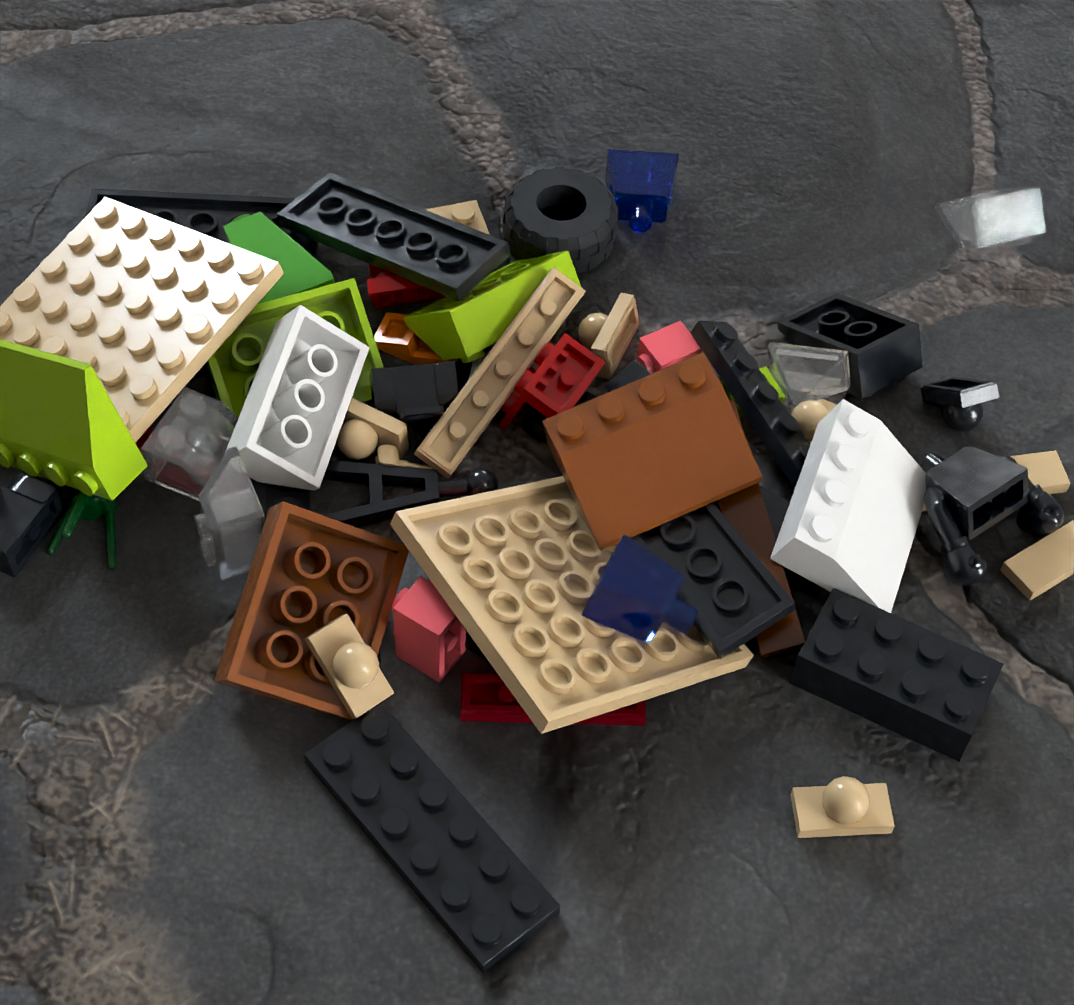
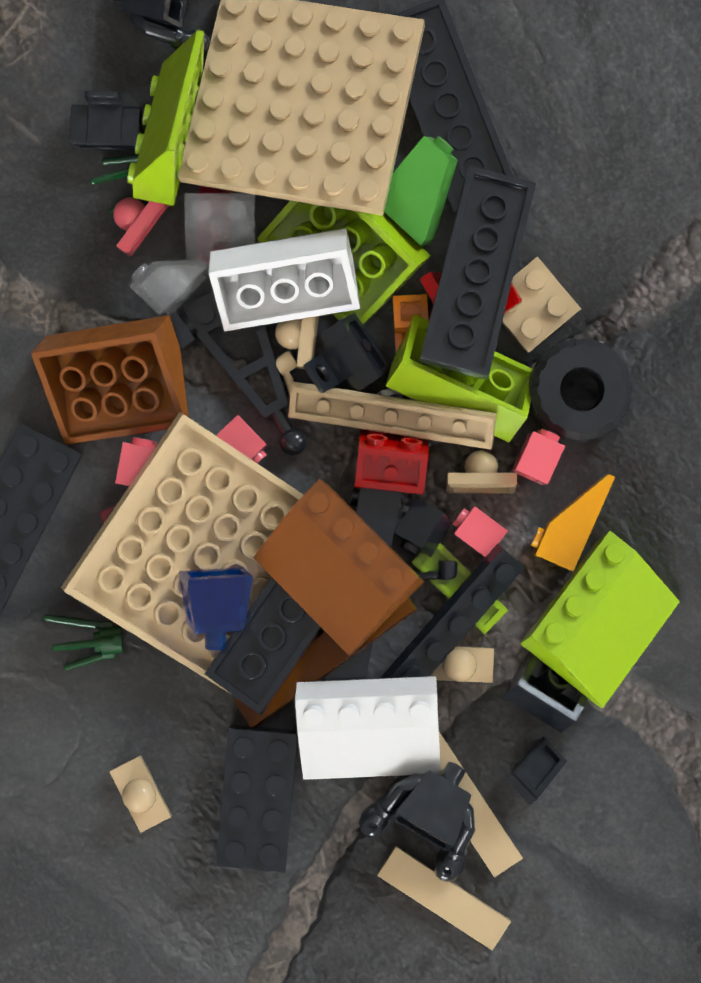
camera: 70 degrees right, 35 degrees up
(139, 533) = (137, 220): none -> coral tile
(349, 665) = (87, 425): tan tile -> none
(613, 265) = (538, 456): none -> coral brick
(626, 769) = (106, 641): none -> dark green plant
(641, 185) = (655, 439): clear blue torso -> none
(701, 280) = (569, 530): none -> light orange slope
(806, 283) = (602, 619): none -> lime slope
(808, 371) = (501, 647): clear slope -> none

